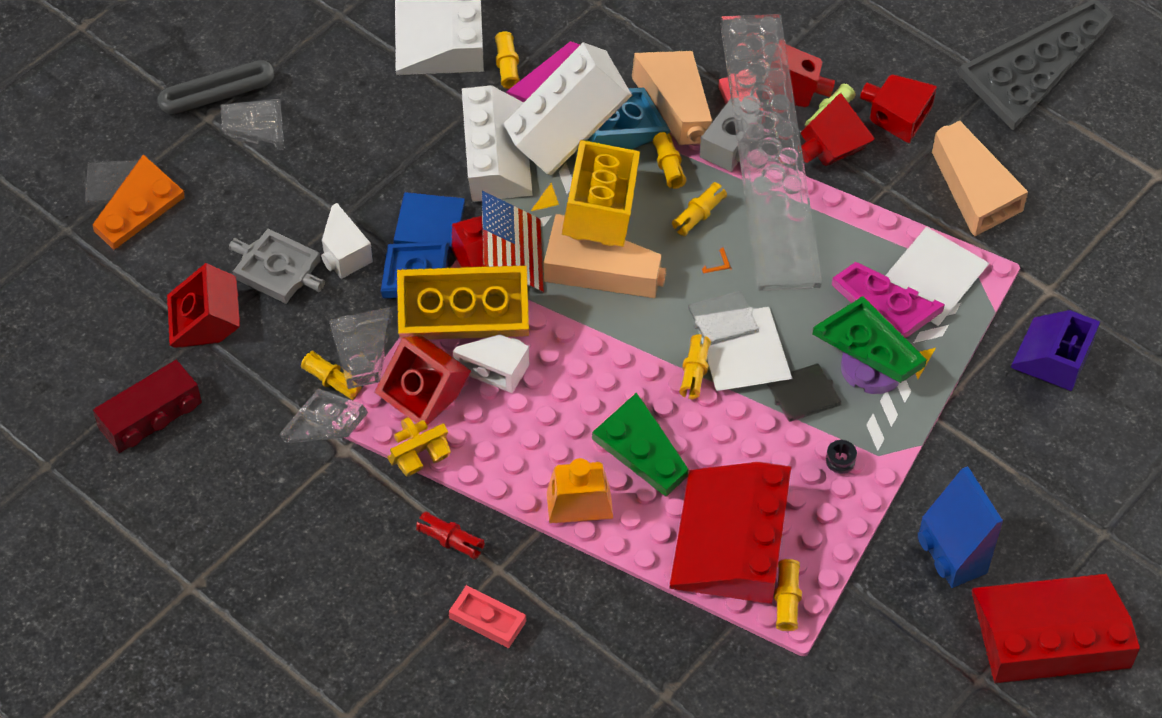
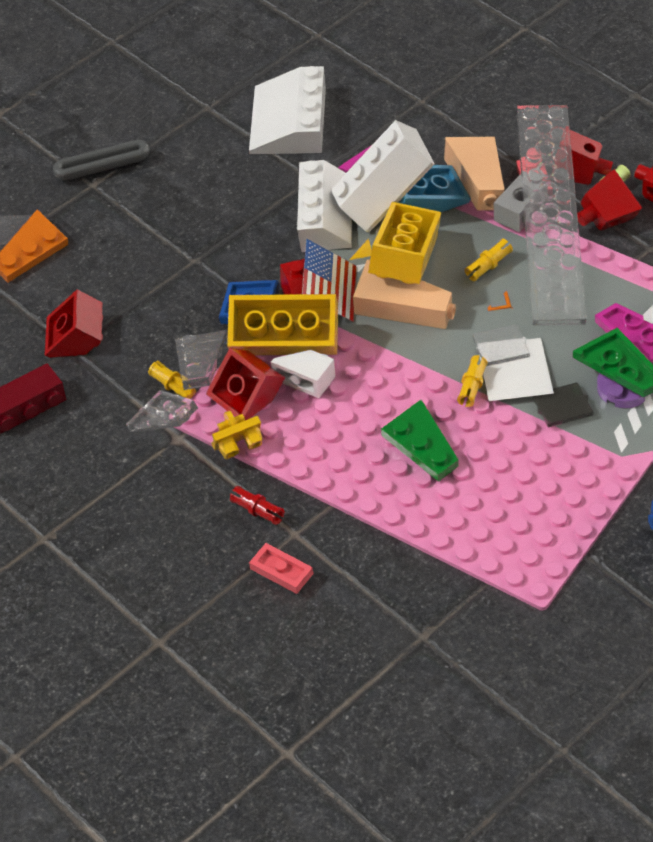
camera: 10 degrees right, 5 degrees down
(254, 121) = (130, 187): clear wing -> none
(276, 265) = (136, 296): light grey plate -> none
(344, 244) = (192, 281): white slope -> none
(428, 218) = (262, 262): blue tile -> none
(507, 59) = (341, 142): yellow pin -> none
(579, 492) = (365, 473): light orange torso -> none
(669, 160) = (467, 221): yellow pin -> none
(732, 531) = (491, 508): red slope -> none
(788, 595) = (531, 559): yellow pin -> none
(841, 466) = (589, 447): black bush -> none

